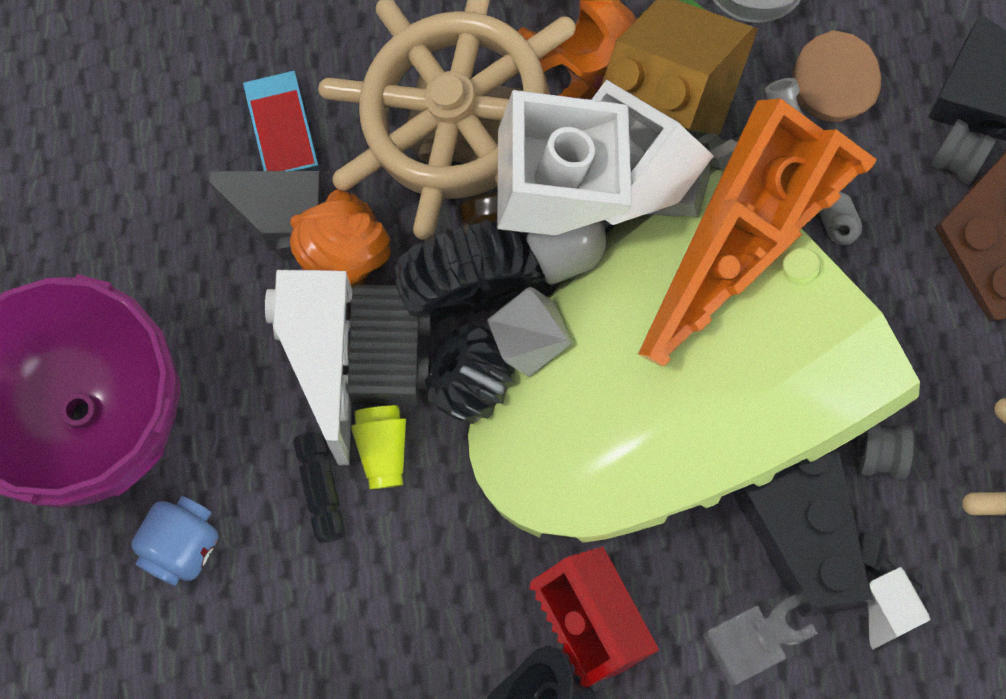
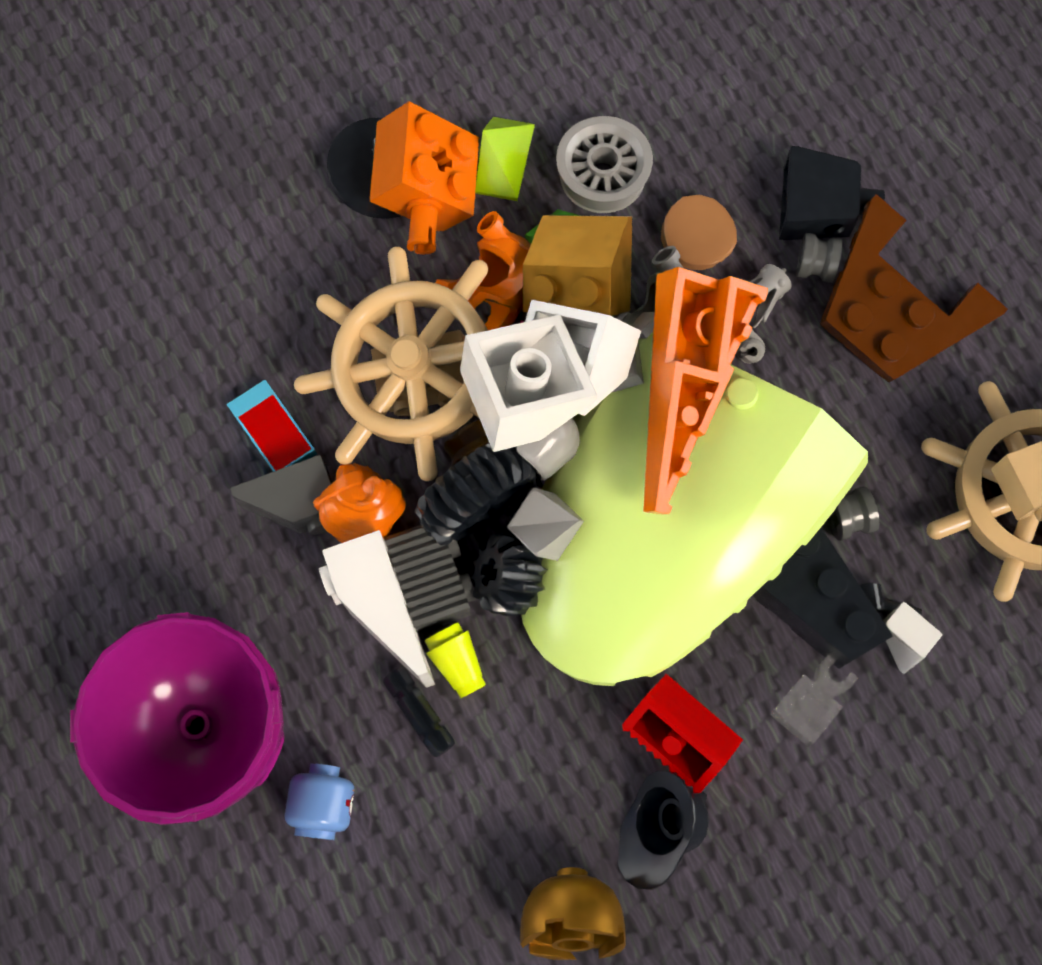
camera: 20 degrees left, 0 degrees up
(898, 165) = (777, 284): none -> light grey piece

